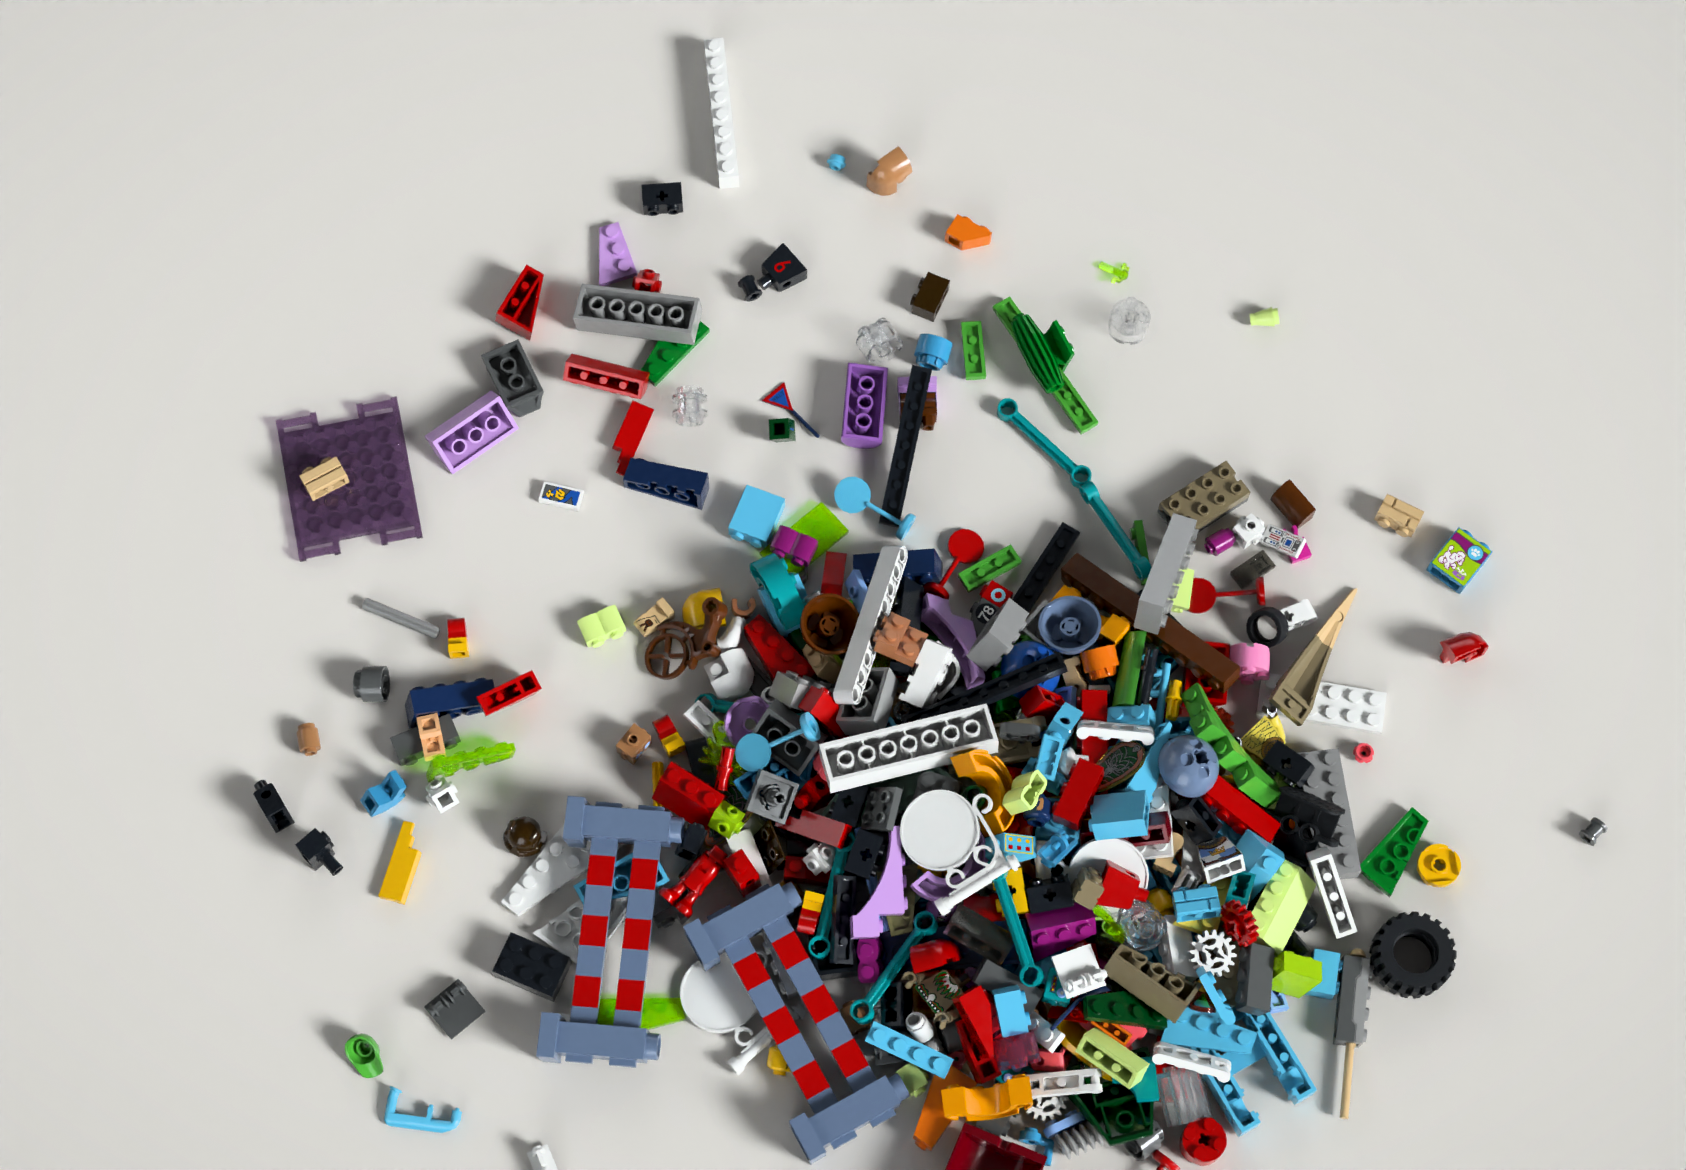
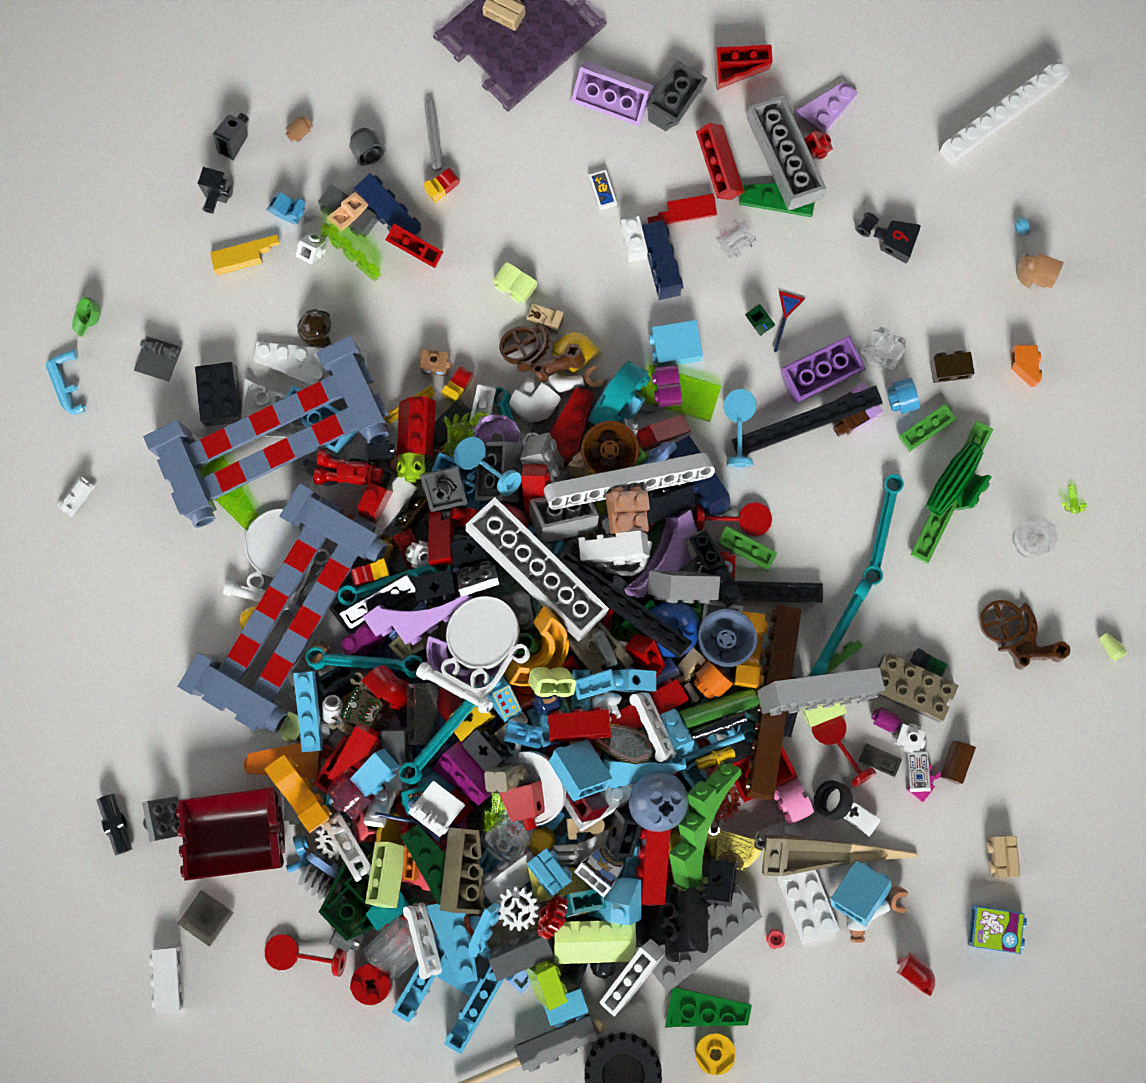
camera: 65 degrees right, 10 degrees up
(630, 495) = (634, 239): none -> white brick
(654, 193) = (899, 113): black brick -> none
(724, 768) = (446, 439): red pin -> none
(989, 600) = (715, 565): none -> black slope
(1188, 475) = (928, 662): none -> leg
(1225, 387) = (1027, 647): none -> reddish brown piece
(1364, 652) = (861, 893): none -> medium azure brick
(1385, 665) = (858, 929): none -> nougat piece

